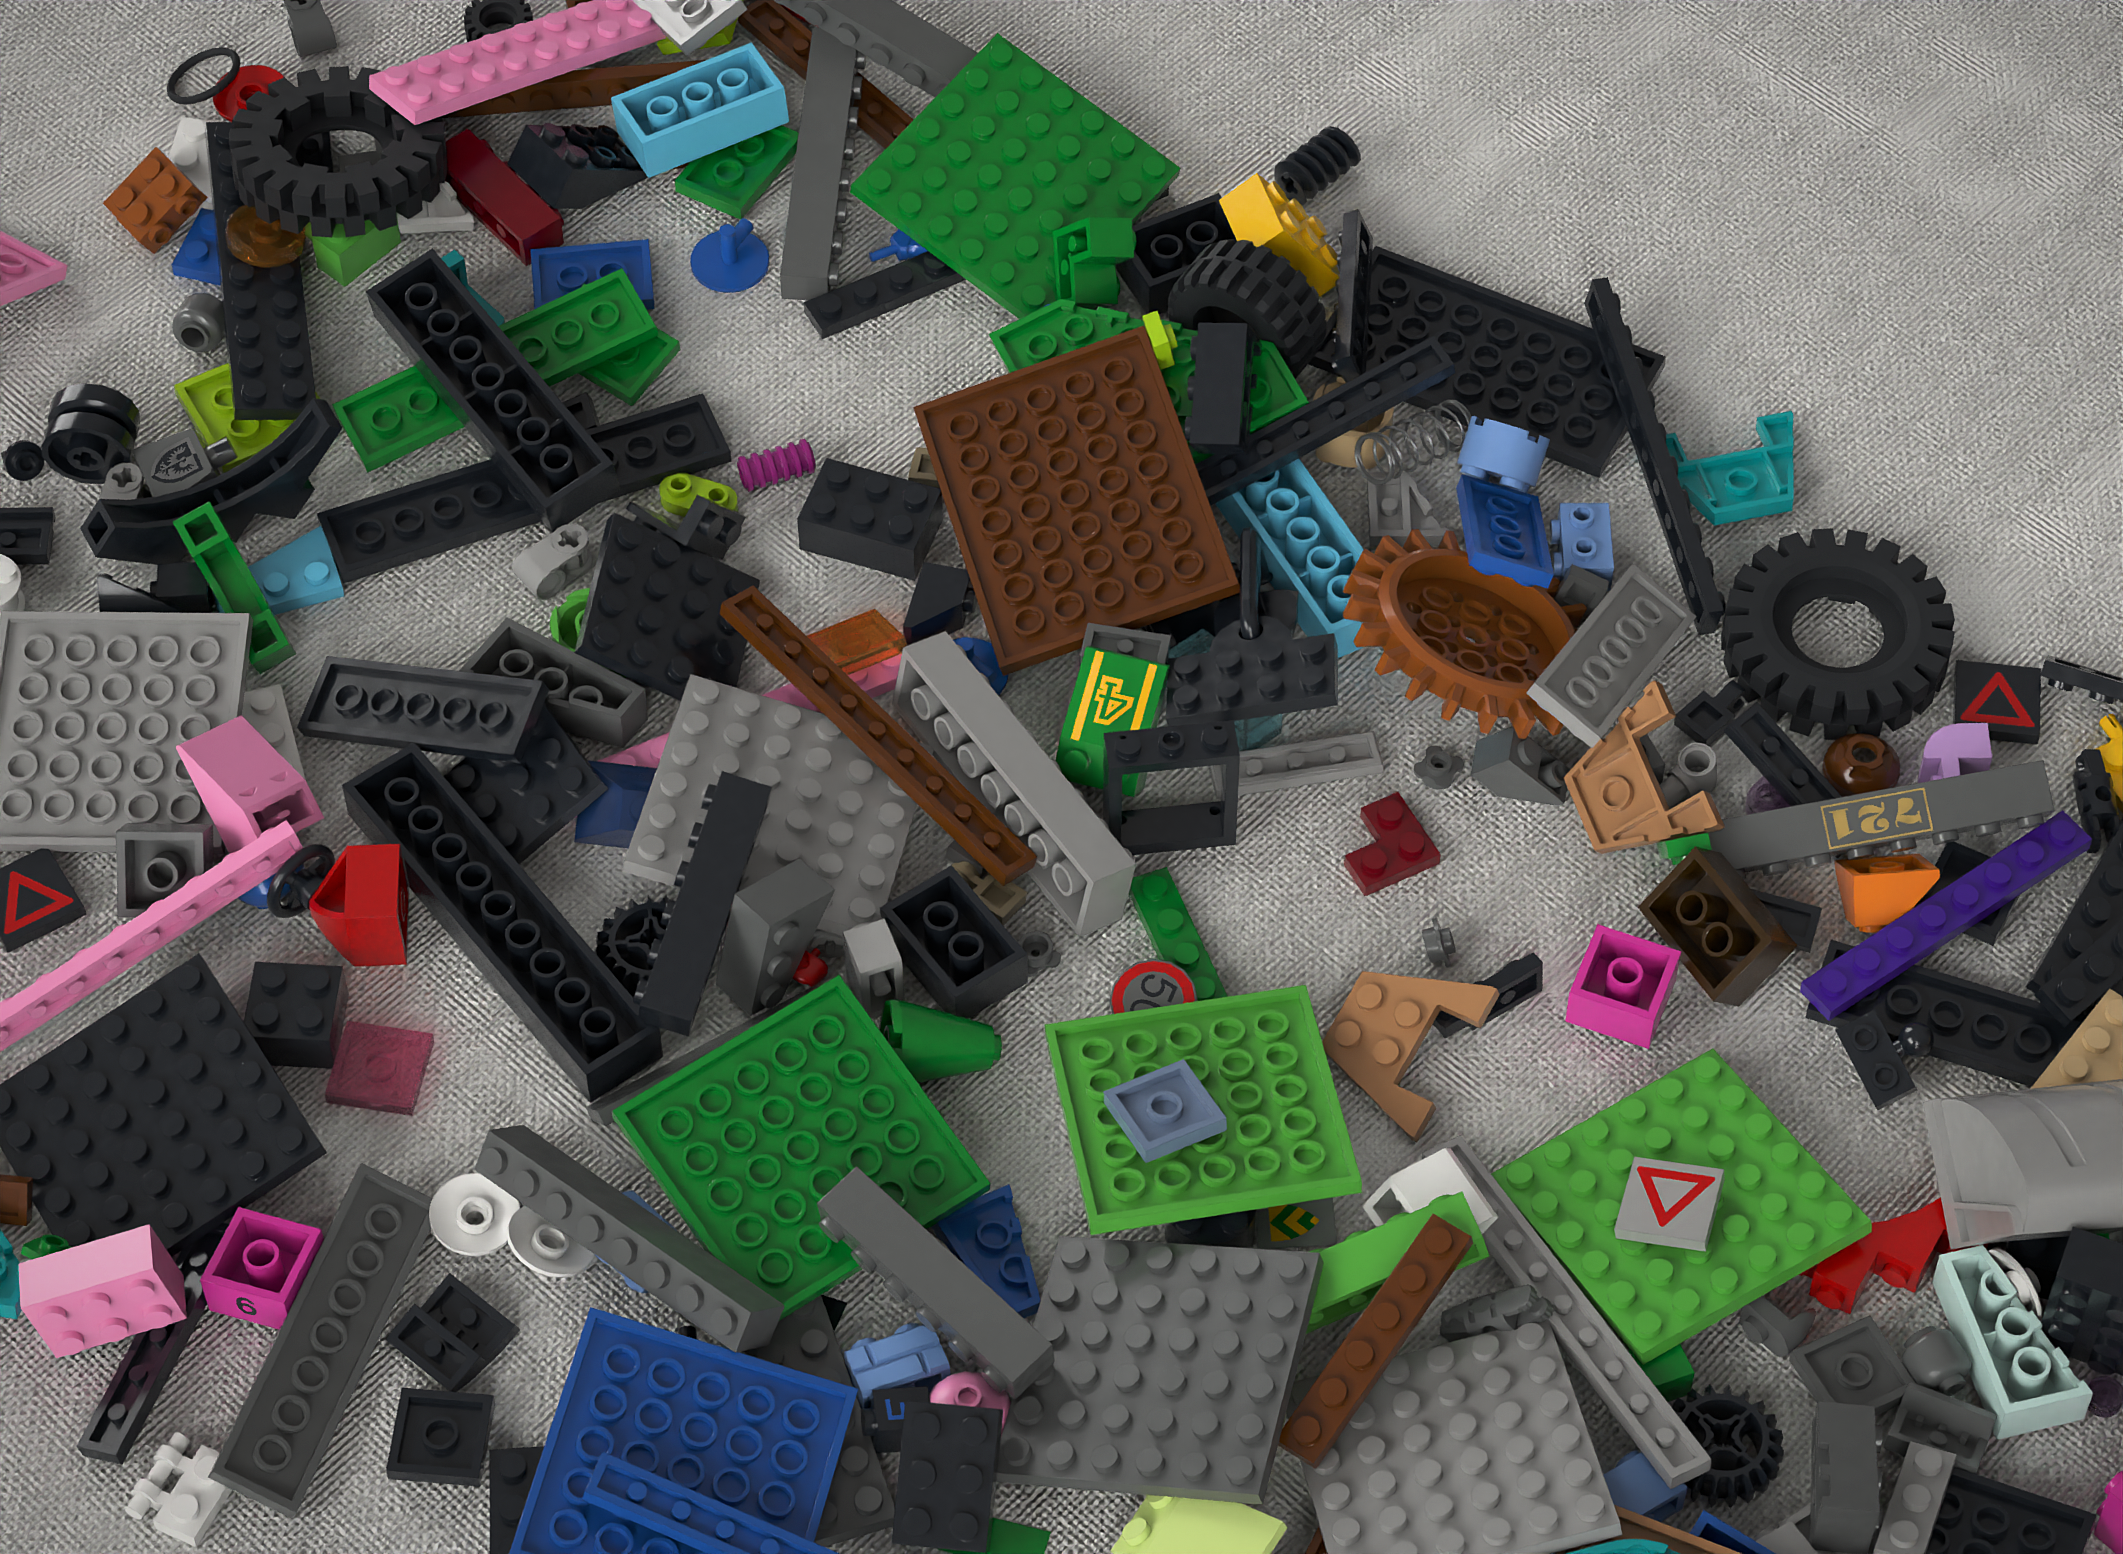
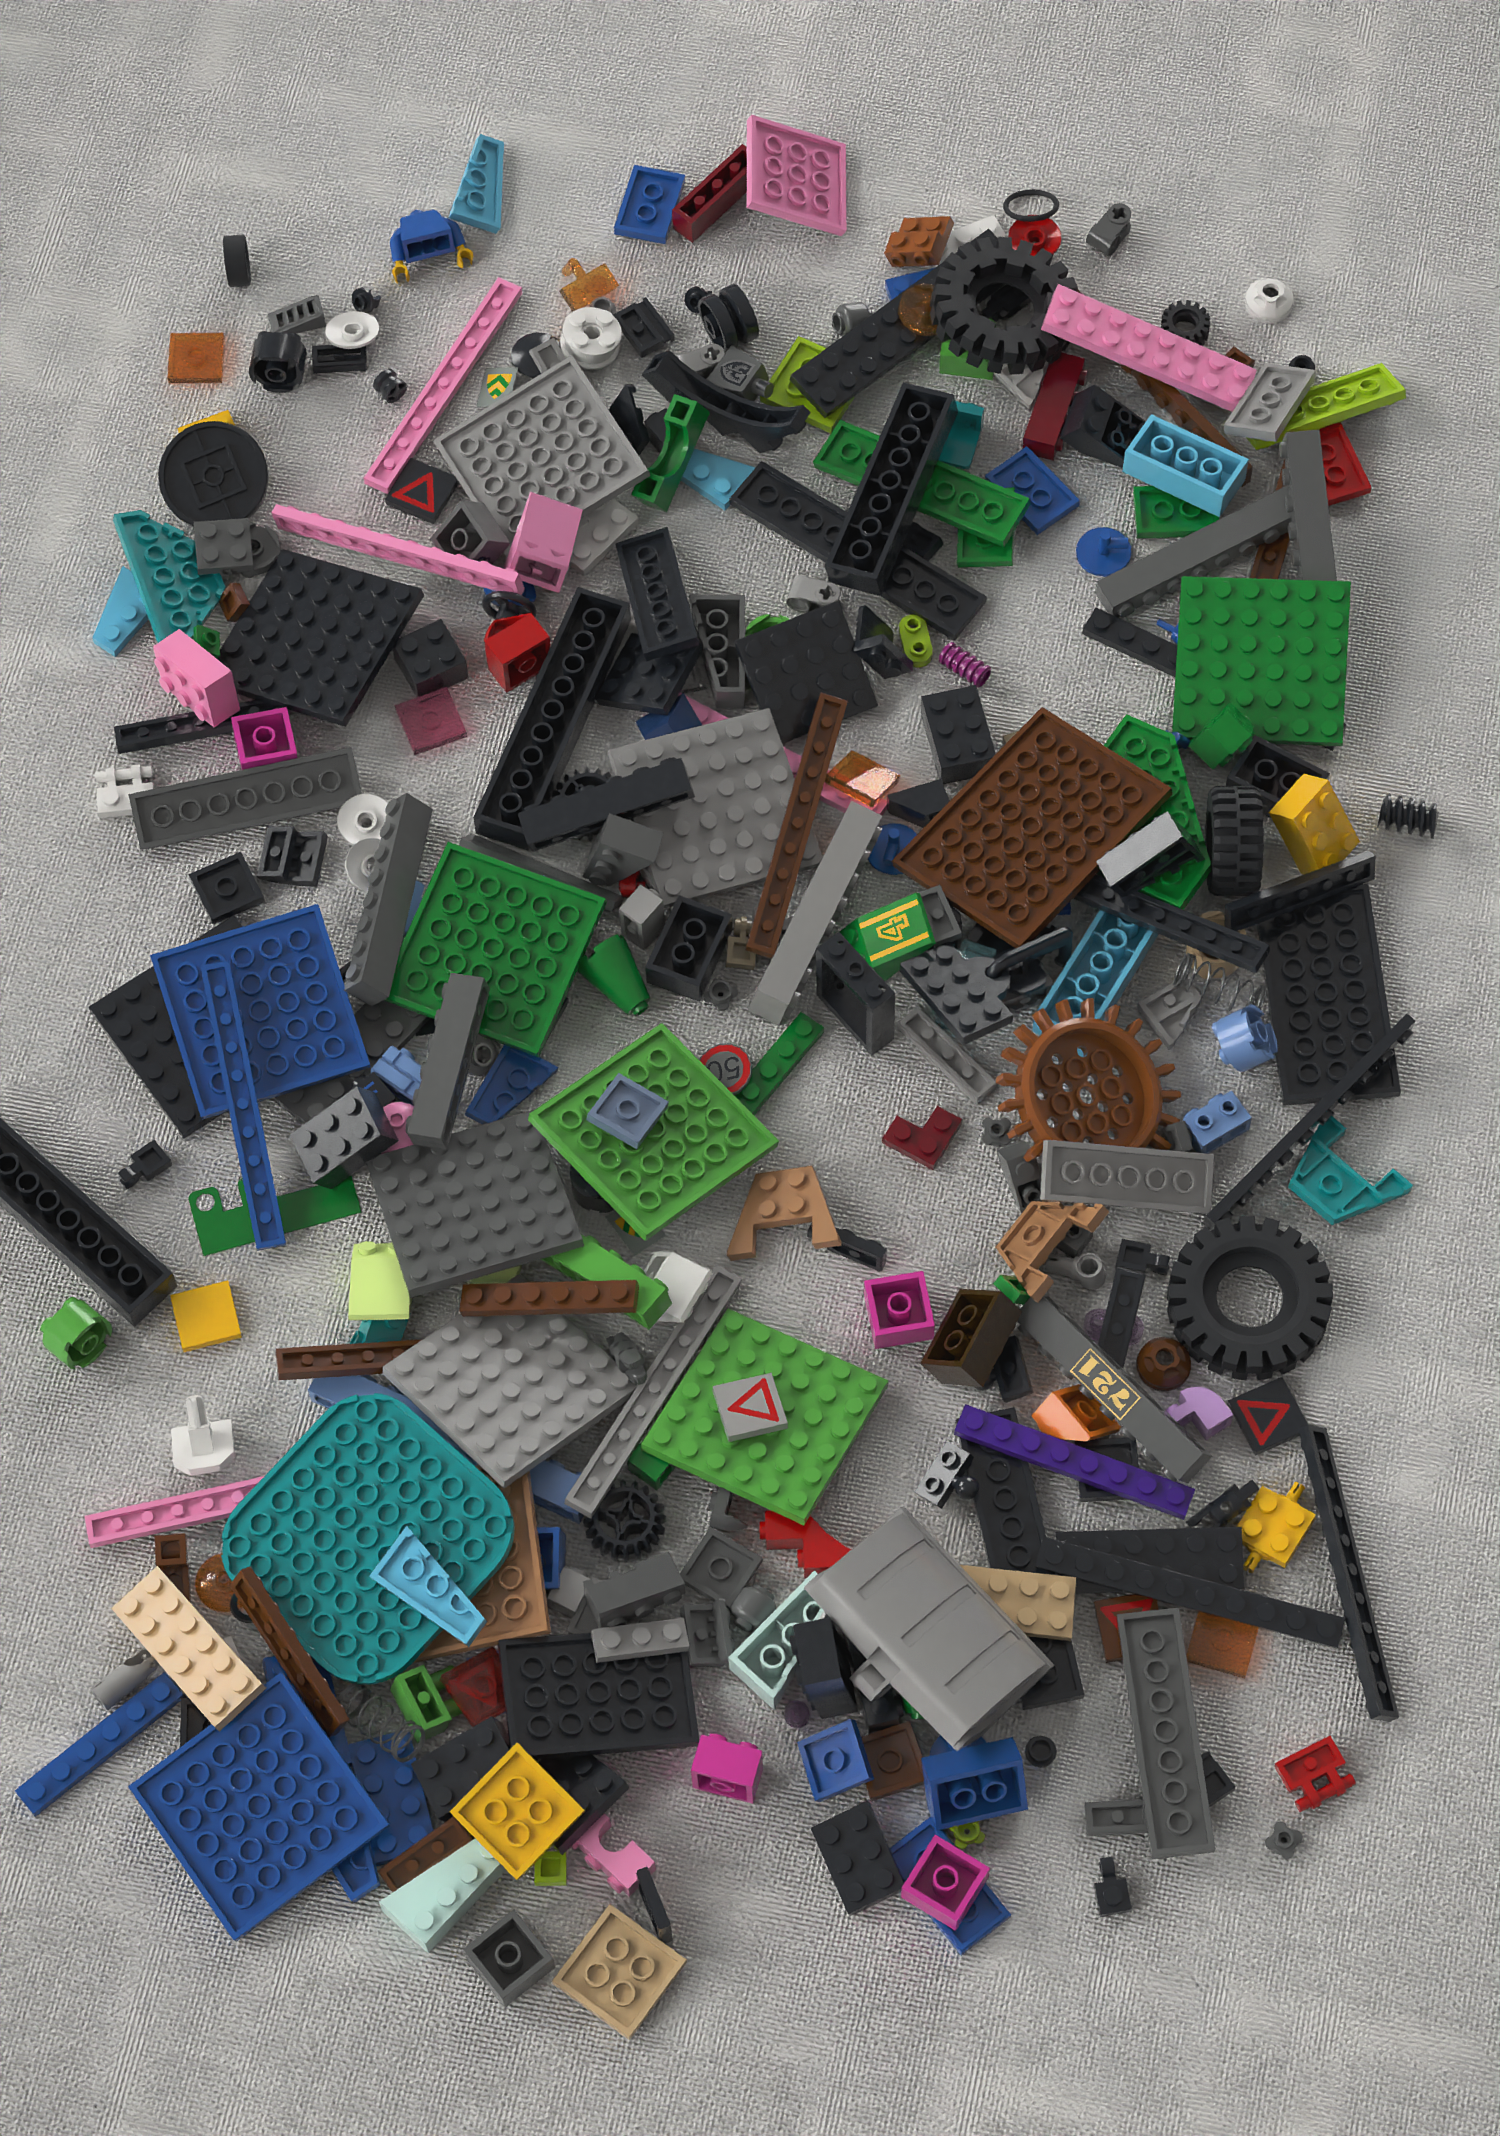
camera: 60 degrees right, 10 degrees up
(1161, 339) = (1167, 800): lime plate -> none
(1438, 943) = (868, 1197): dark grey plate -> none
(1504, 532) = (1180, 1071): blue plate -> none

